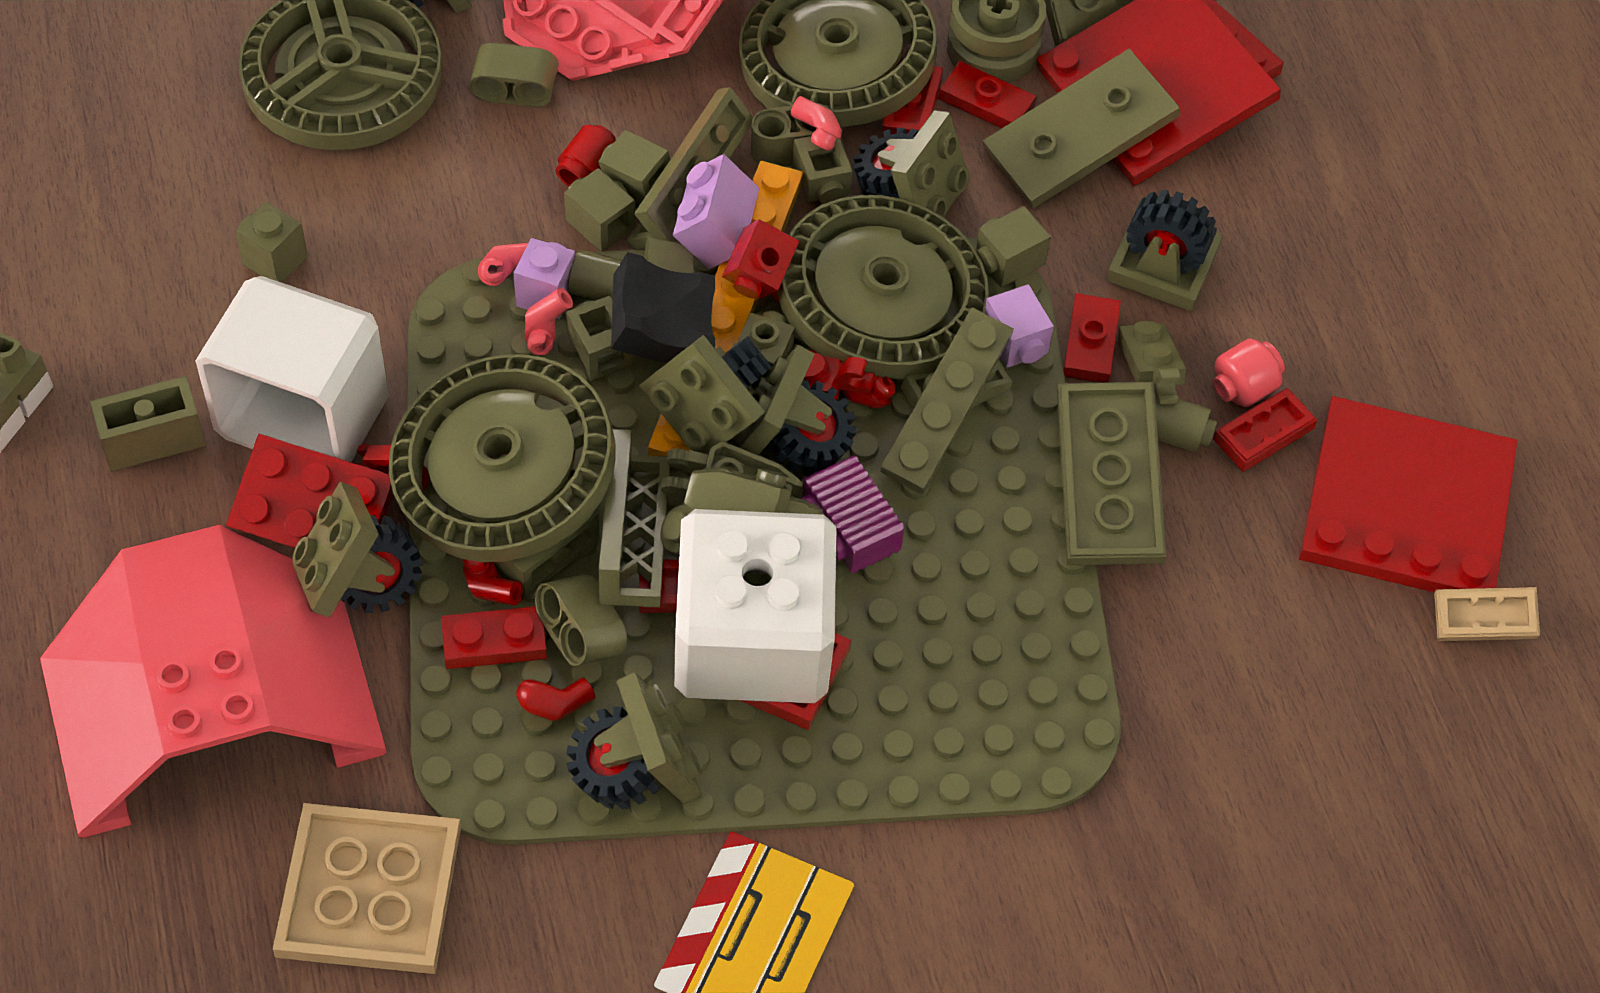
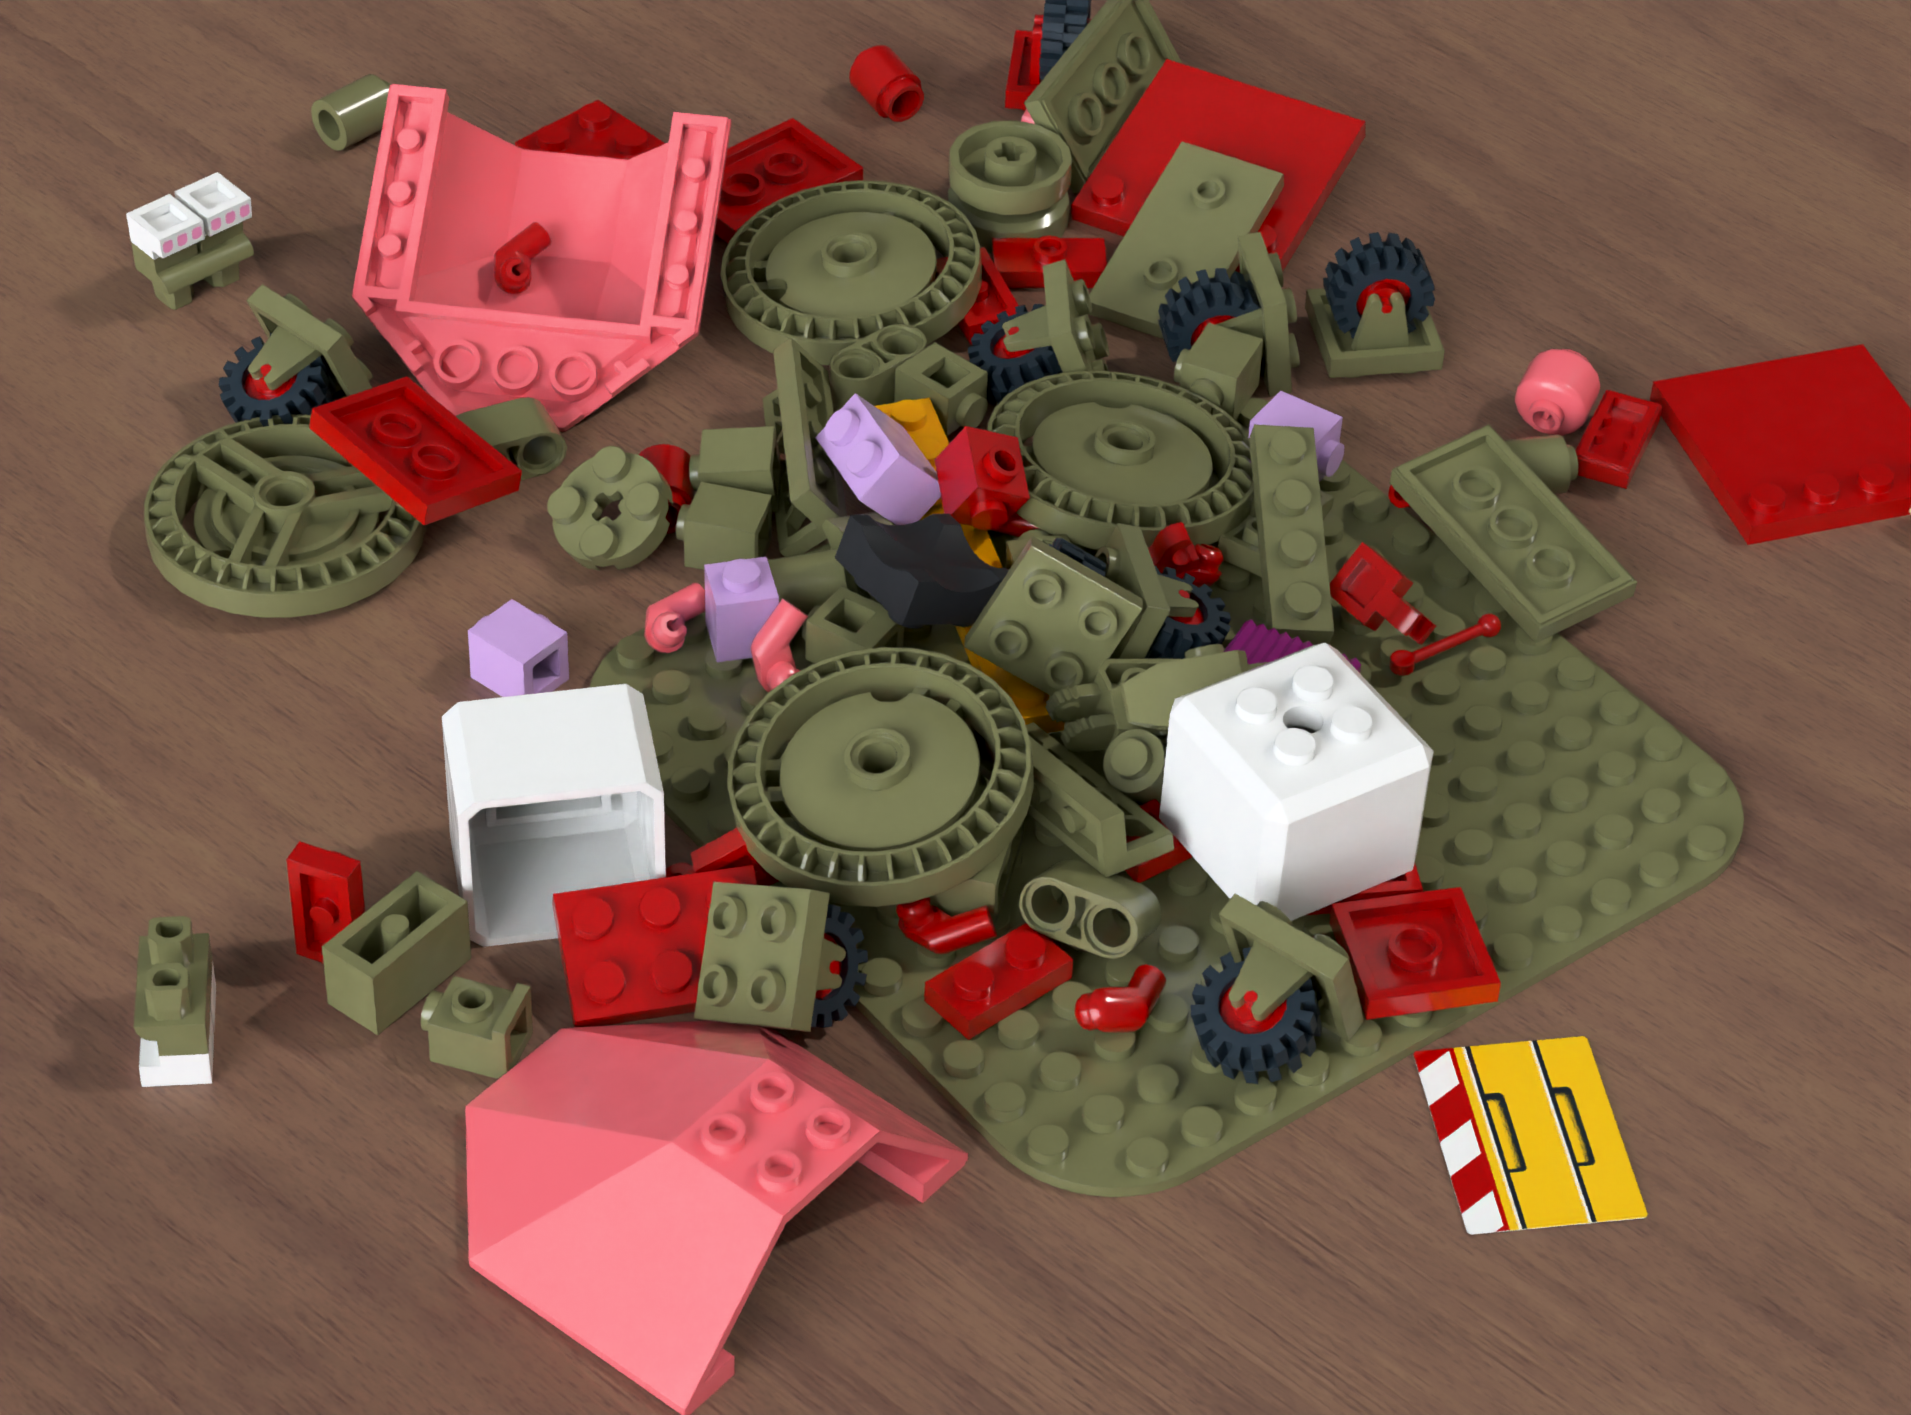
camera: 30 degrees left, 15 degrees down
(125, 359) = (323, 896): none -> red plate
(165, 498) = (478, 1026): none -> olive brick
(271, 242) = (370, 717): olive brick -> none
(368, 888) = (1080, 1289): tan plate -> none
(399, 239) = (518, 652): none -> lavender brick
(433, 60) = (415, 450): none -> red plate
(517, 149) = (590, 489): none -> olive plate
(768, 765) = (1415, 953): none -> red plate
(818, 117) = (915, 332): coral arm -> none
(959, 534) = (1403, 661): none -> red hinge
(971, 473) = (1375, 591): none -> red plate
(1062, 205) = (1245, 303): none -> plate
(1091, 338) = (1368, 434): red plate -> none
(1153, 358) = (1450, 415): olive plate -> none

